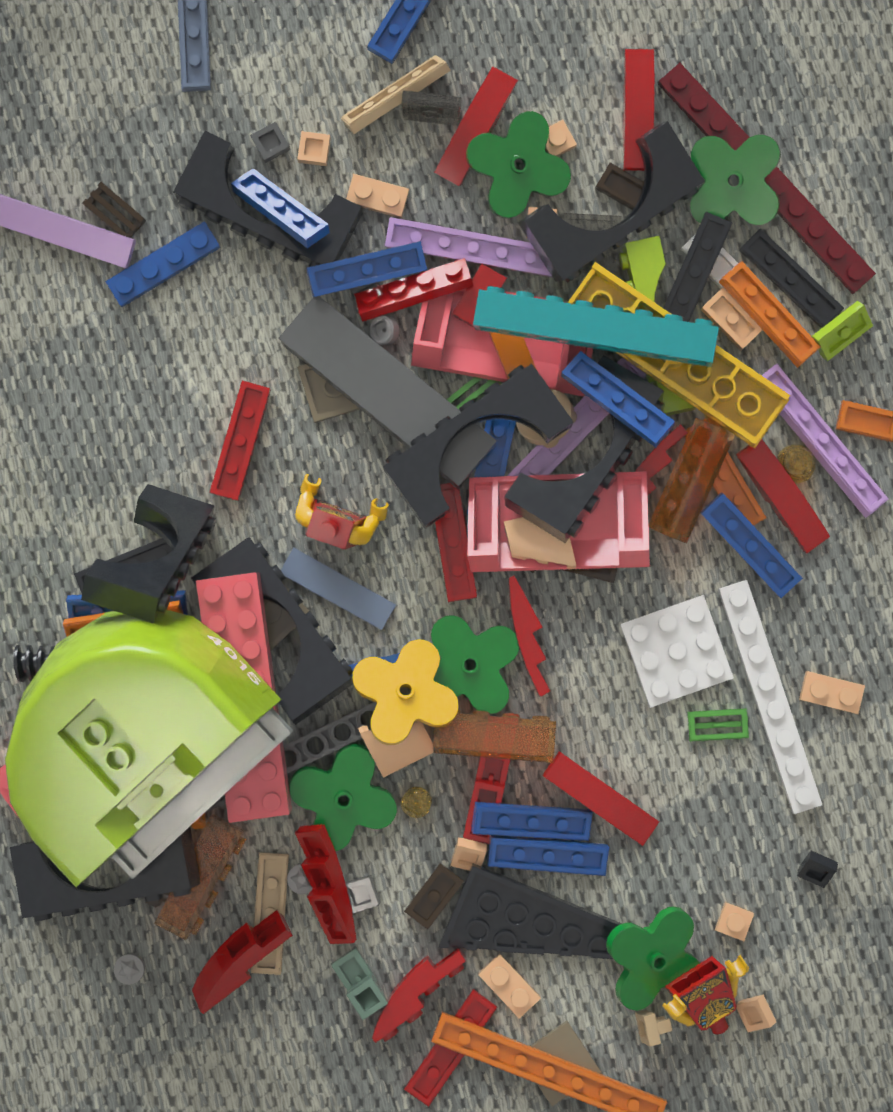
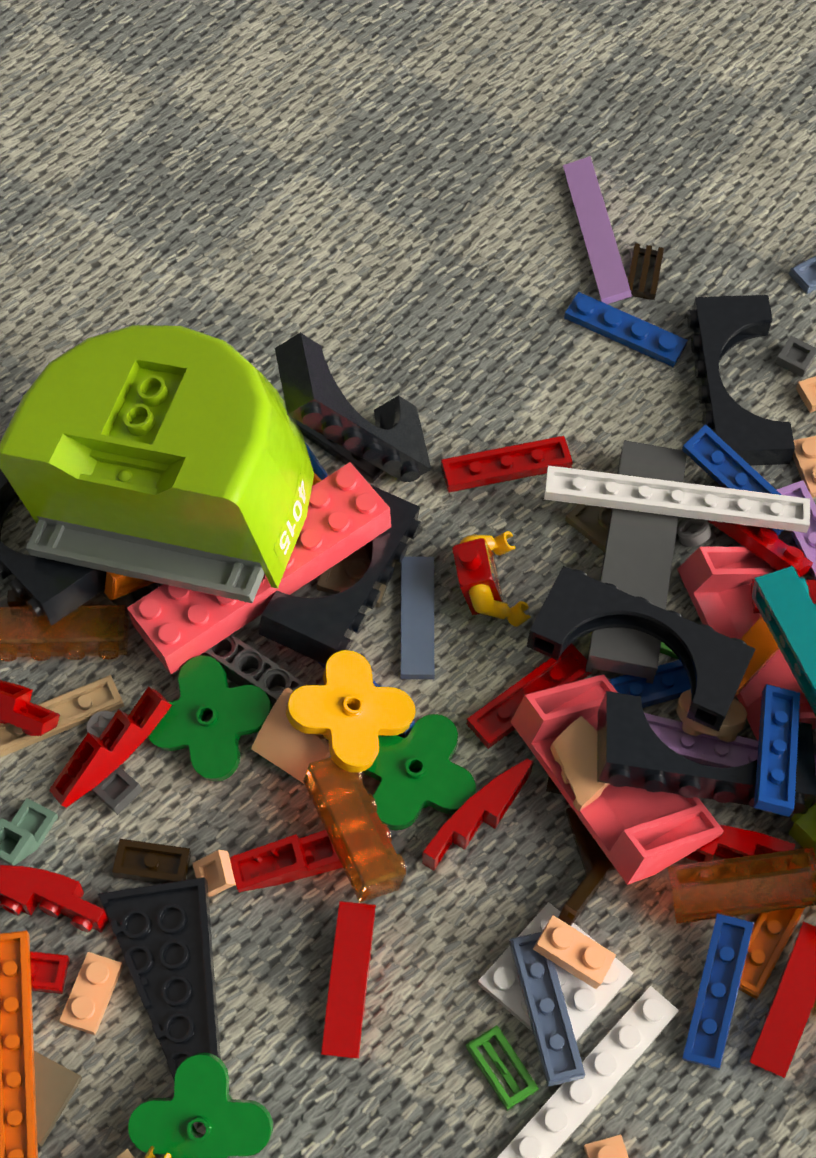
camera: 60 degrees right, 25 degrees down
(280, 208) = (743, 383): plate -> none
(361, 334) = (677, 499): none -> white plate
(416, 802) = (242, 795): clear yellow tile -> none
(531, 821) = (285, 917): blue tile -> none
(547, 855) = (257, 956): blue tile -> none
(633, 599) = (584, 892): none -> dark brown tile
(673, 631) = (574, 952): none -> light nougat plate
(699, 673) = (547, 1012): none -> sand blue tile

